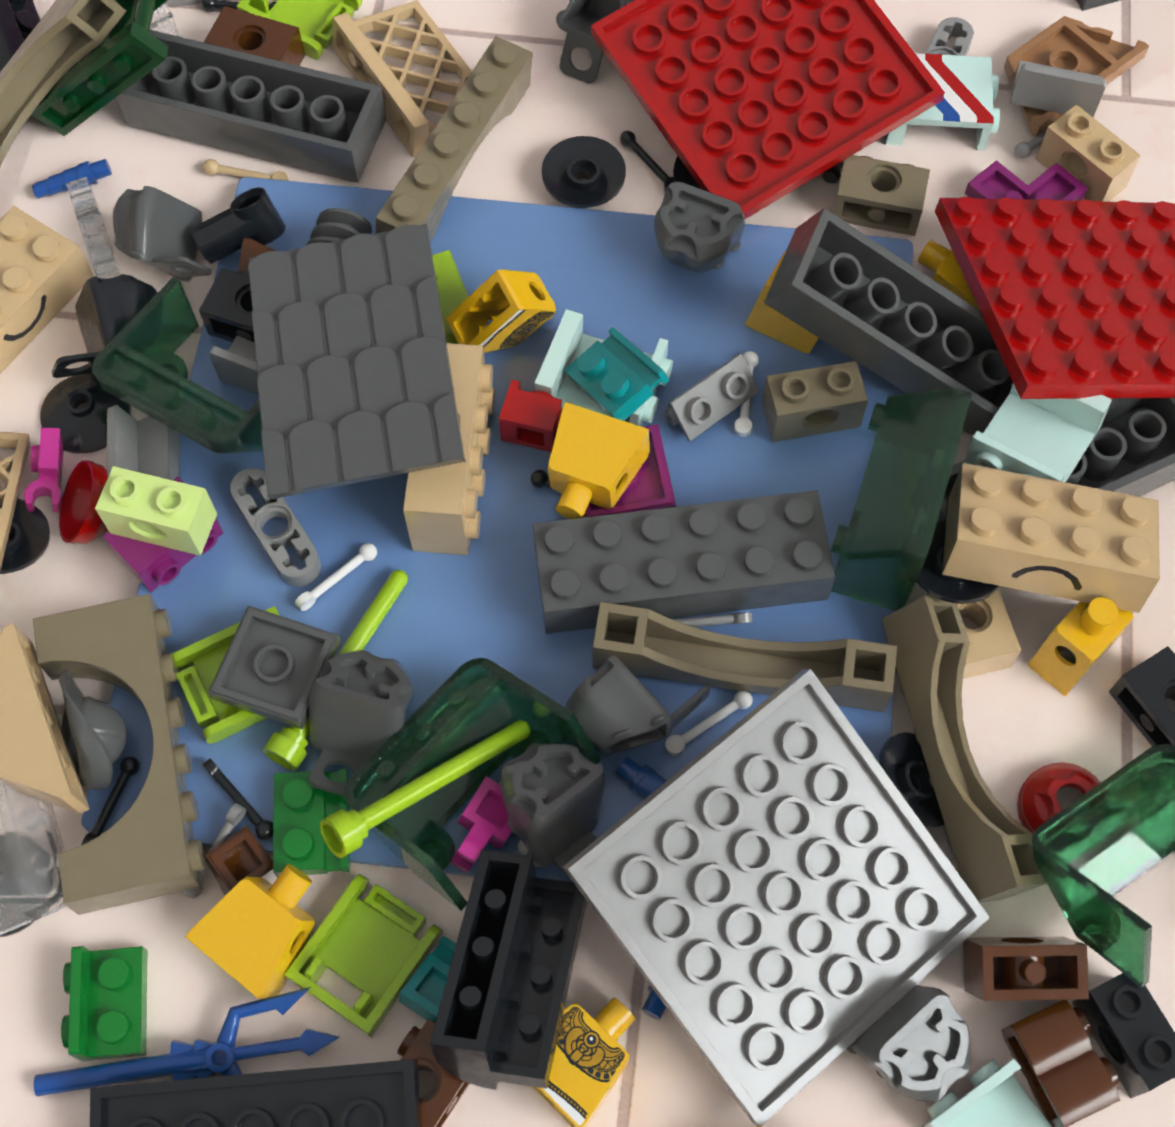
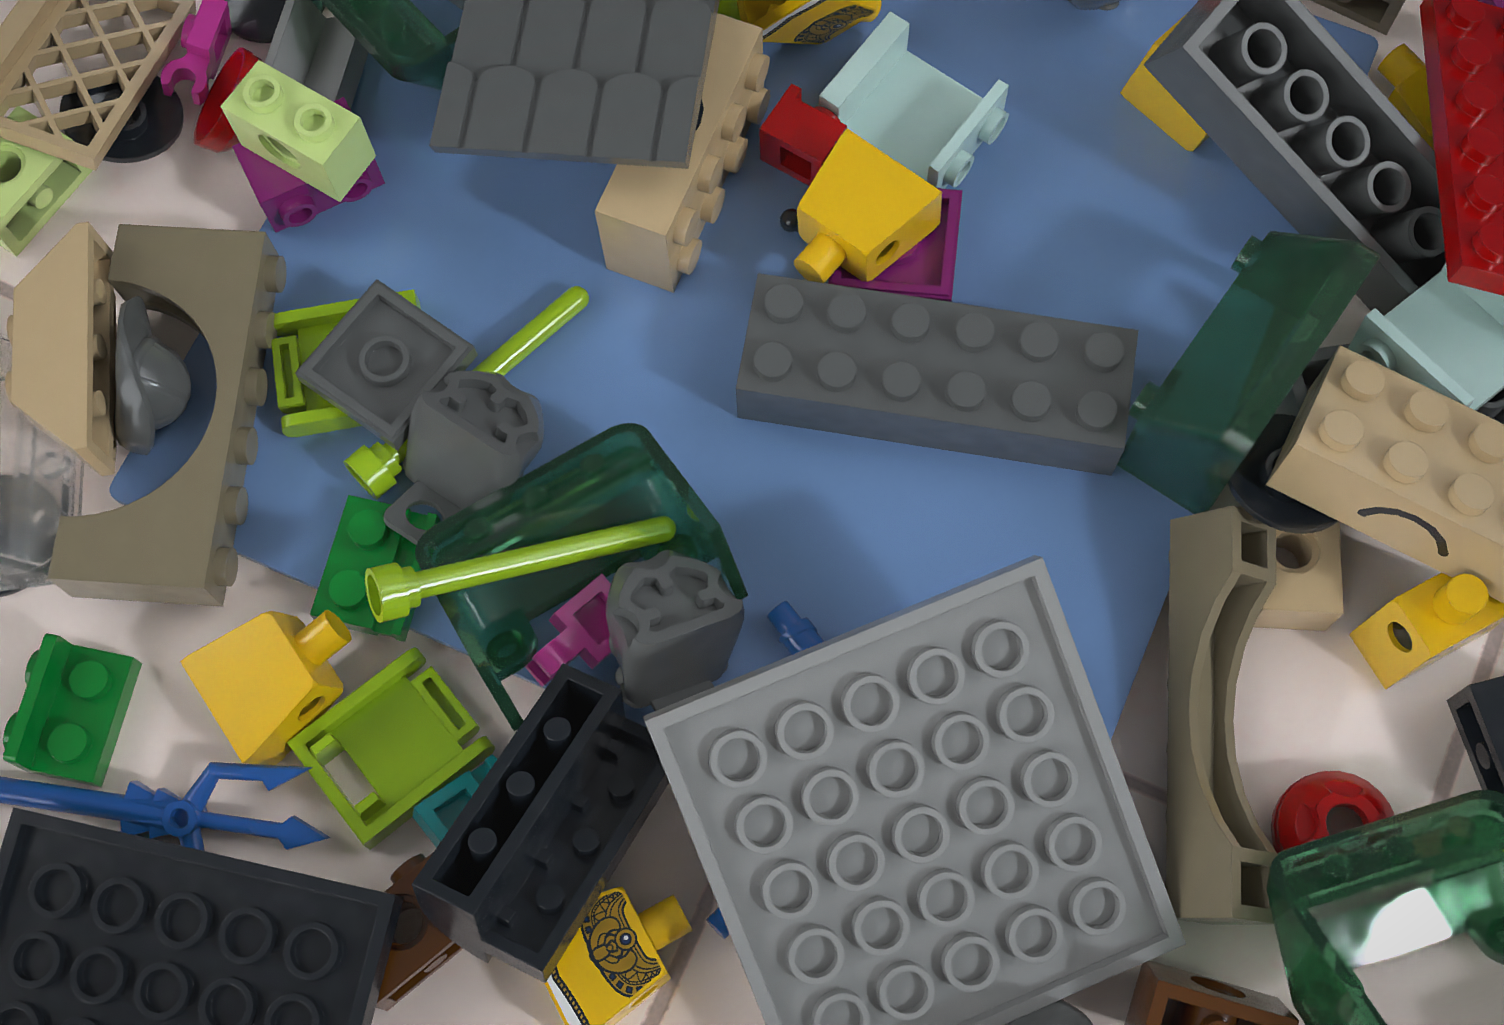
camera: 20 degrees right, 5 degrees up
(129, 766) = (183, 437): black hinge -> none
(232, 818) = (283, 534): light grey hinge -> none
(238, 858) = (276, 586): reddish brown slope -> none
(264, 828) = (316, 557): black hinge -> none
(275, 545) = (439, 215): light grey beam -> none
(366, 553) = (456, 293): white hinge -> none
(616, 375) = (927, 113): teal plate -> none
(622, 712) = (788, 544): dark grey piece -> none
(658, 647) = (873, 476): dark tan arch -> none
(676, 744) = (855, 603): white hinge -> none
(712, 398) = (1044, 175): light grey hinge -> none
(735, 618) = (887, 448): light grey hinge -> none
(743, 425) = (1075, 222): white hinge -> none
(814, 401) = (1176, 214): dark tan brick -> none
(906, 767) = (1139, 734): black dish -> none

